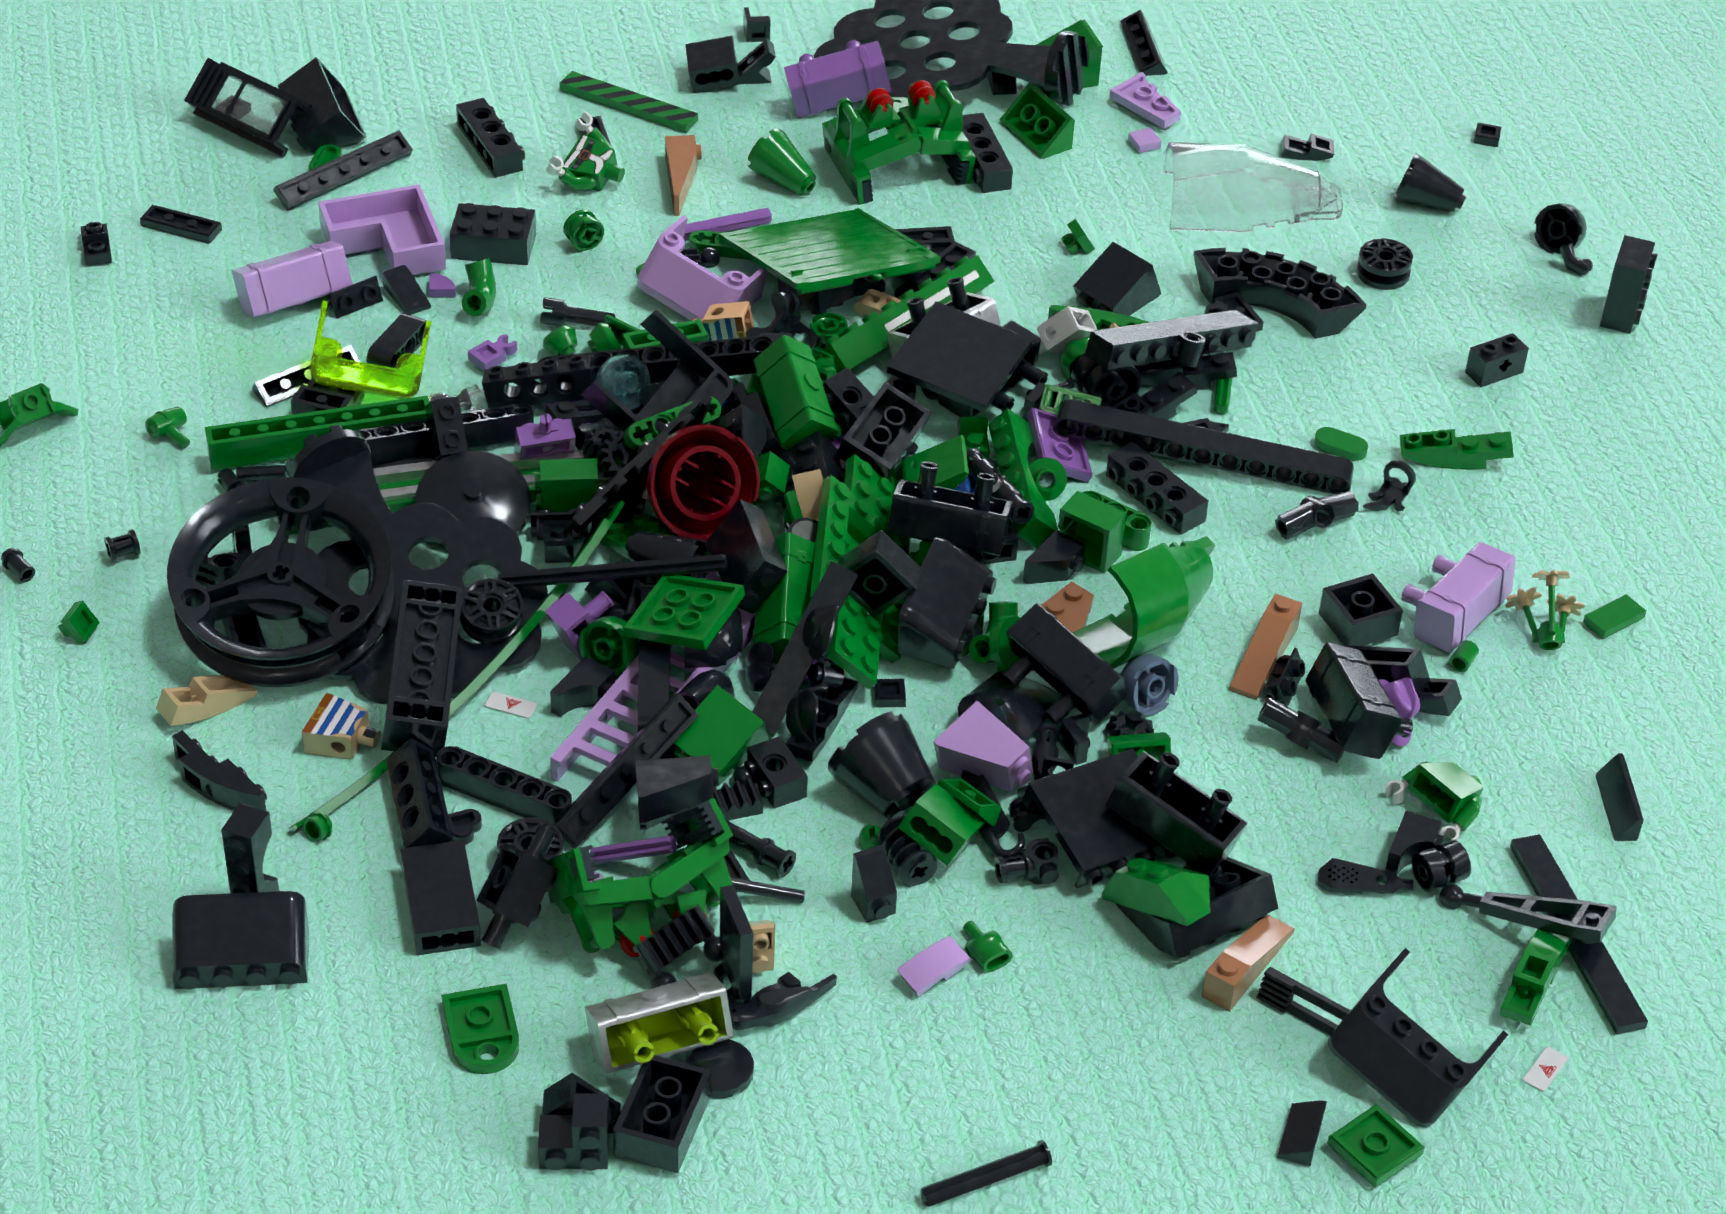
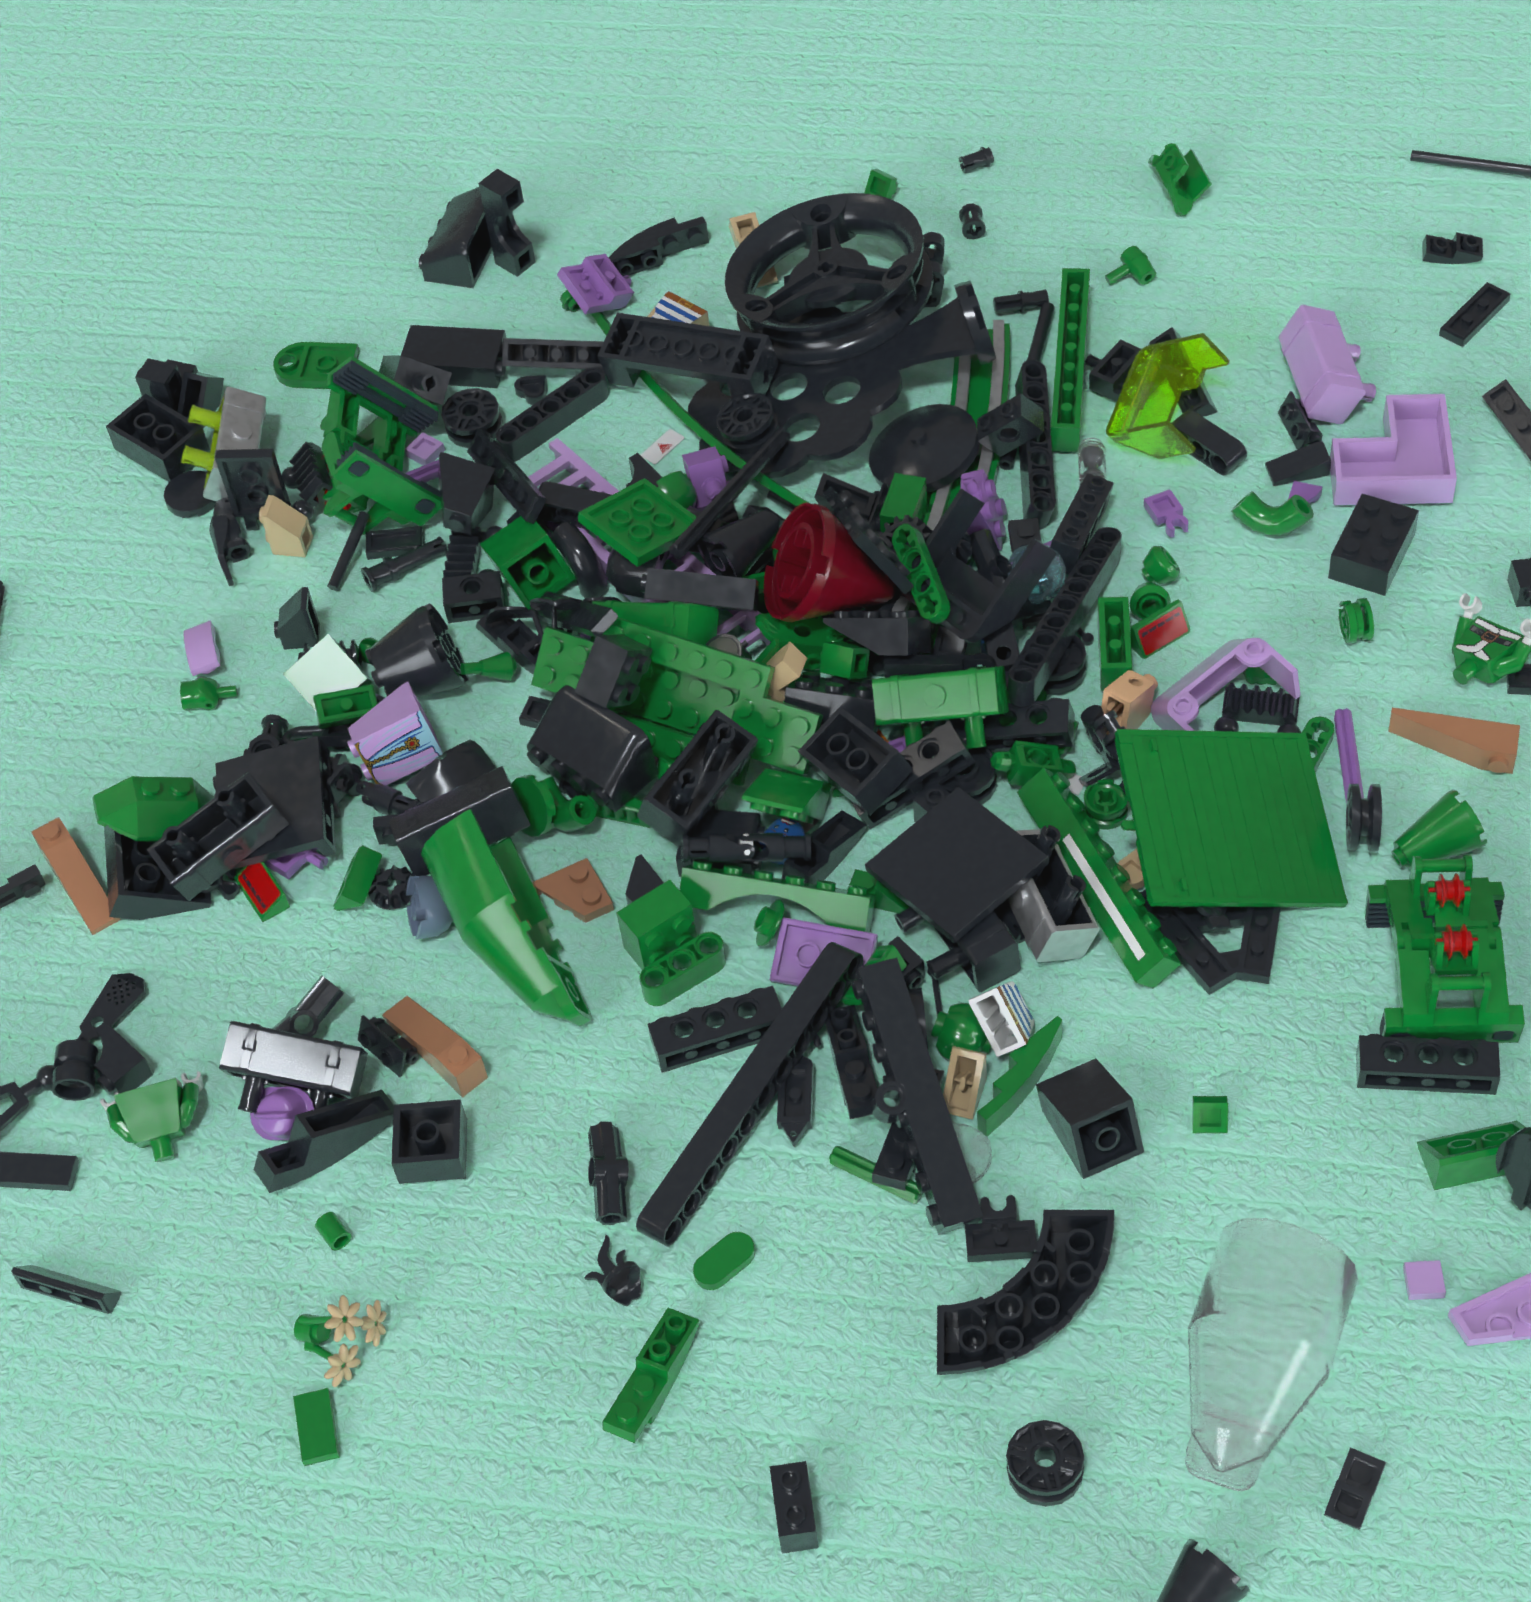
camera: 120 degrees right, 10 degrees up
(305, 794) = (596, 284): none -> medium lavender plate
(563, 313) = (1214, 575): black piece -> none
(790, 193) = (1363, 817): none -> black wheel
(851, 721) = (499, 666): none -> green cone
(1461, 596) = (398, 1252): lavender piece -> none

